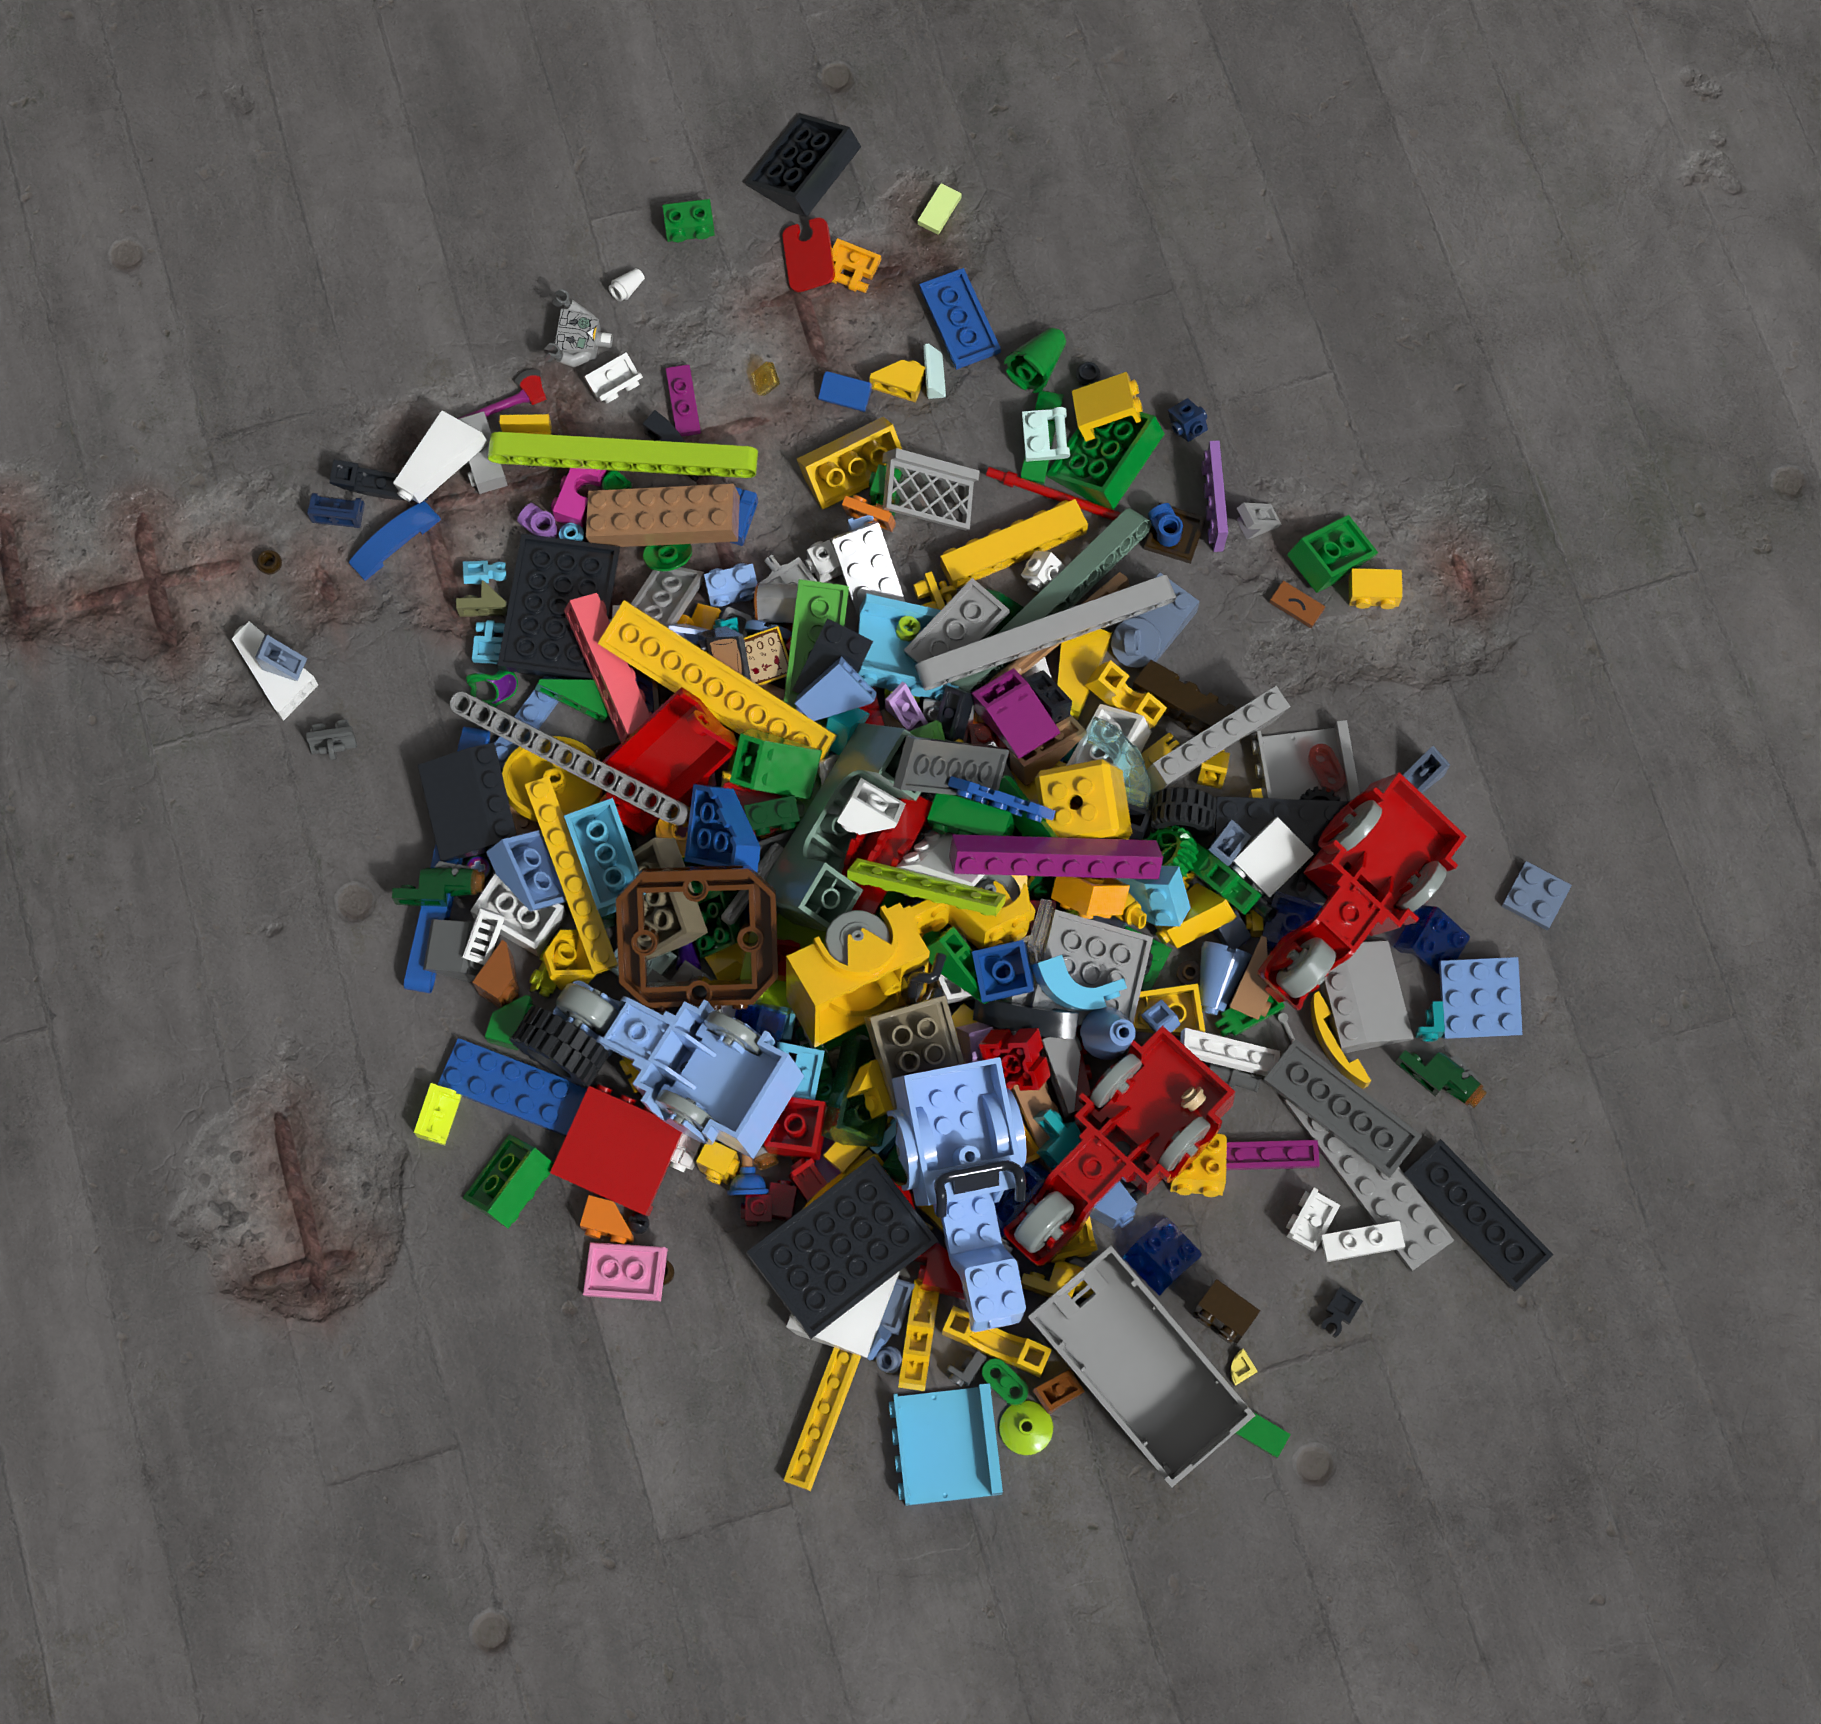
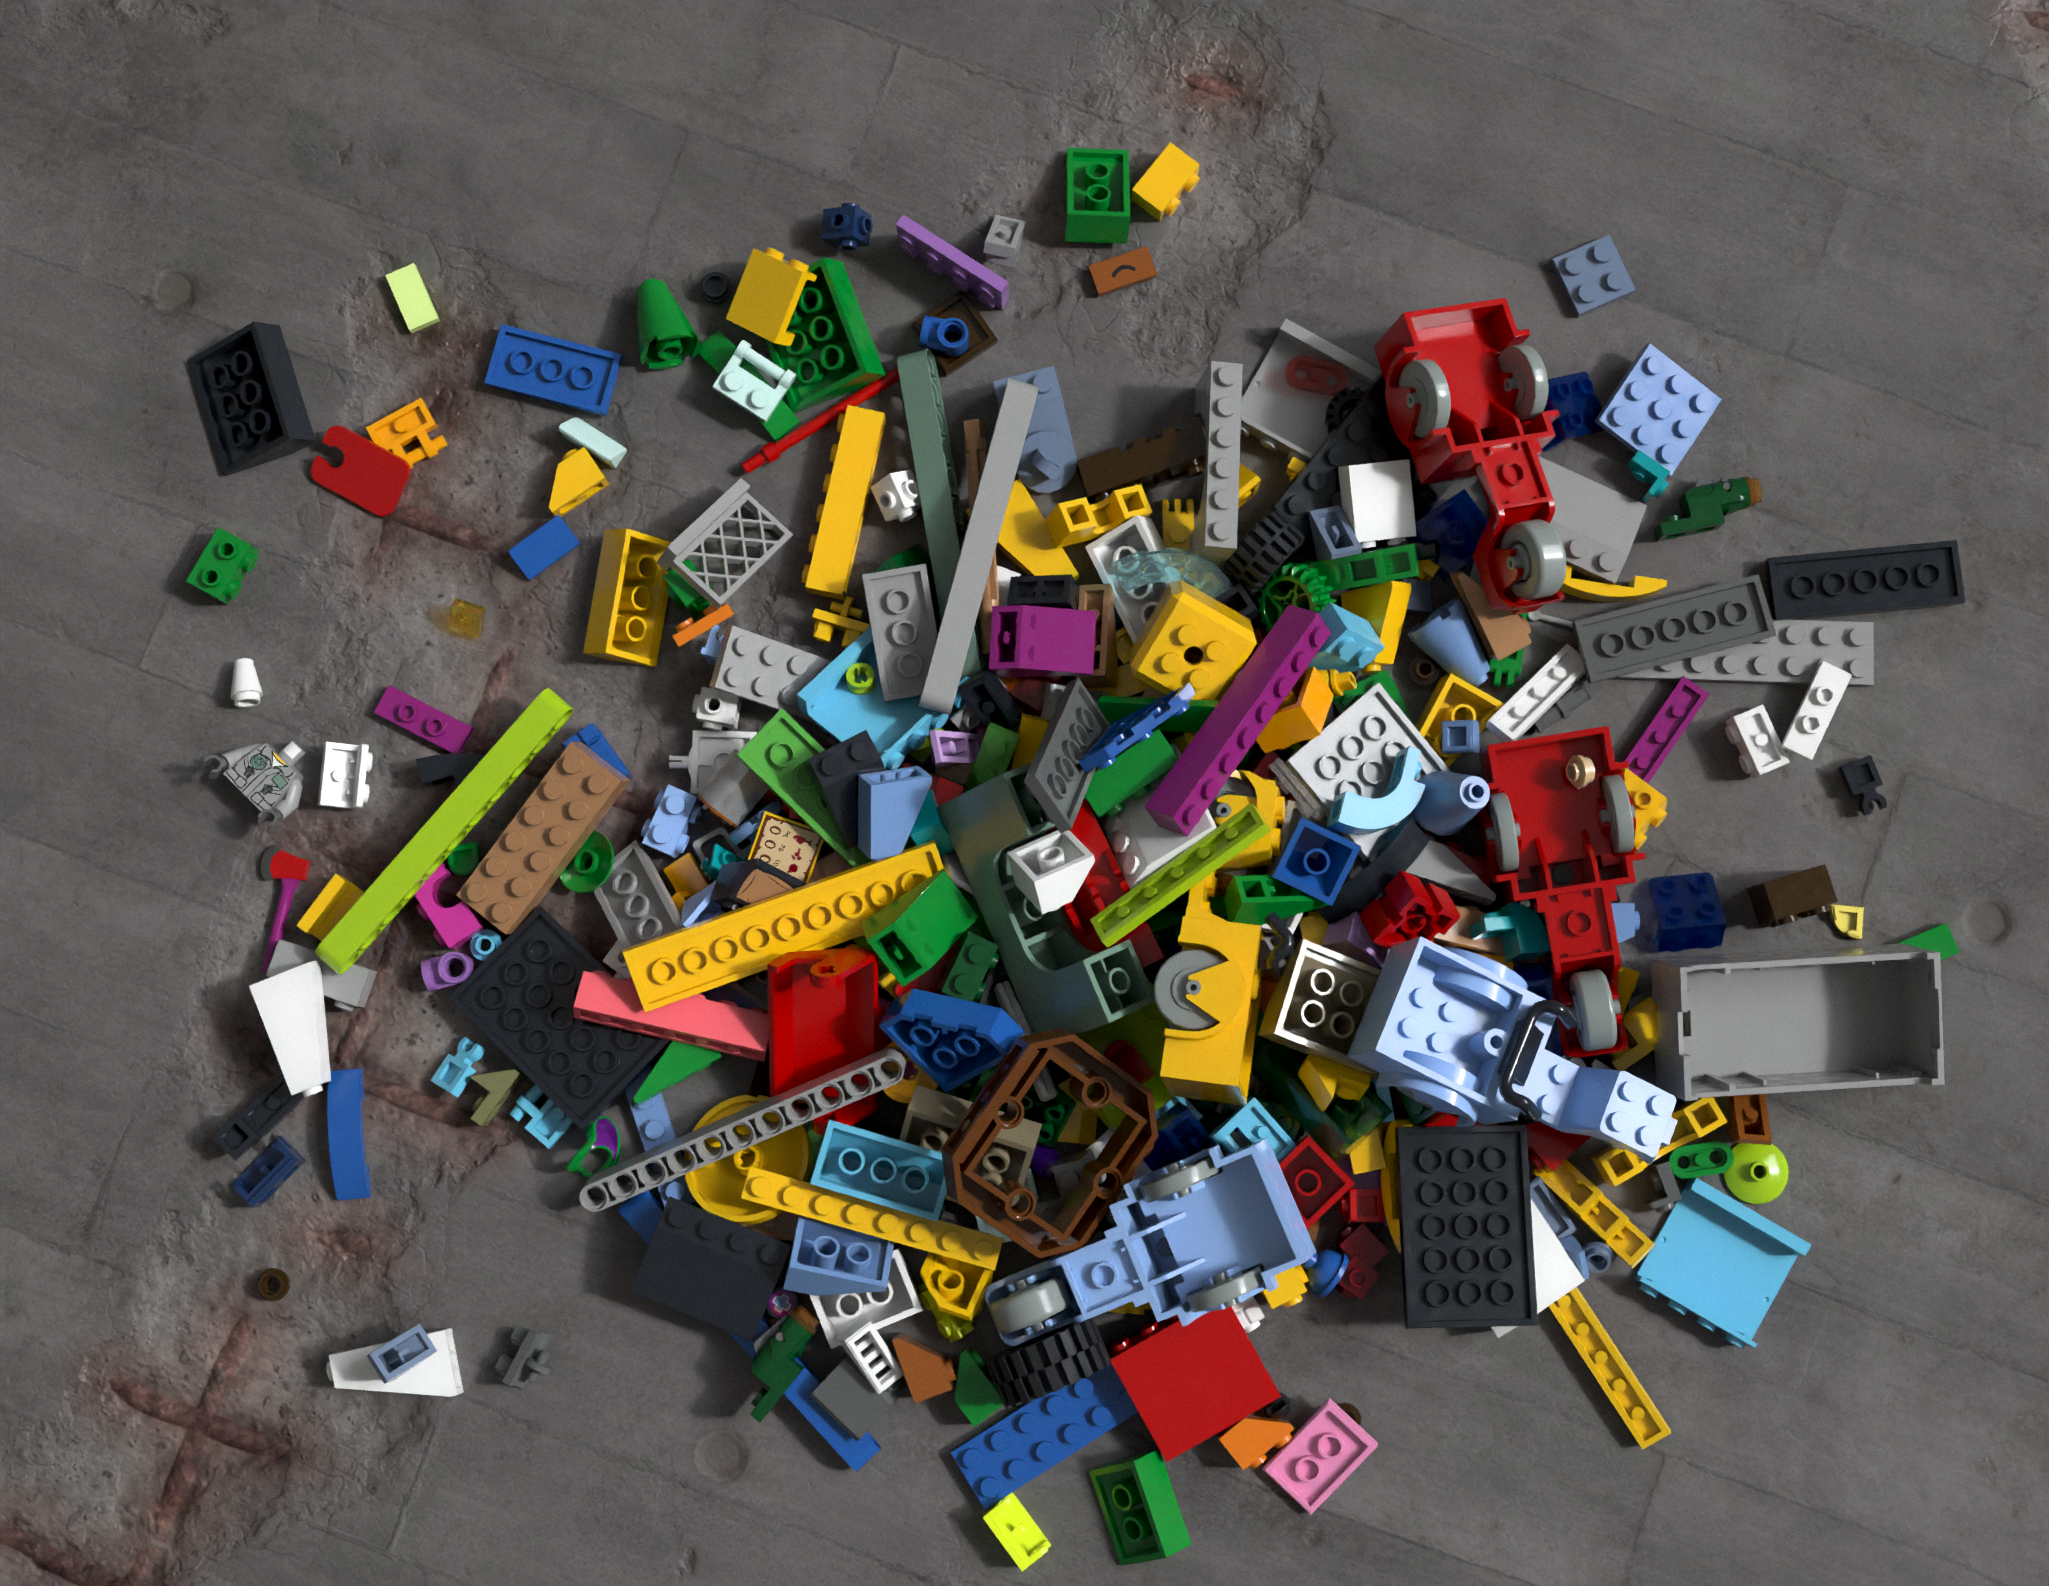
camera: 50 degrees left, 10 degrees up
(1427, 770) = (1392, 284): sand blue slope -> none

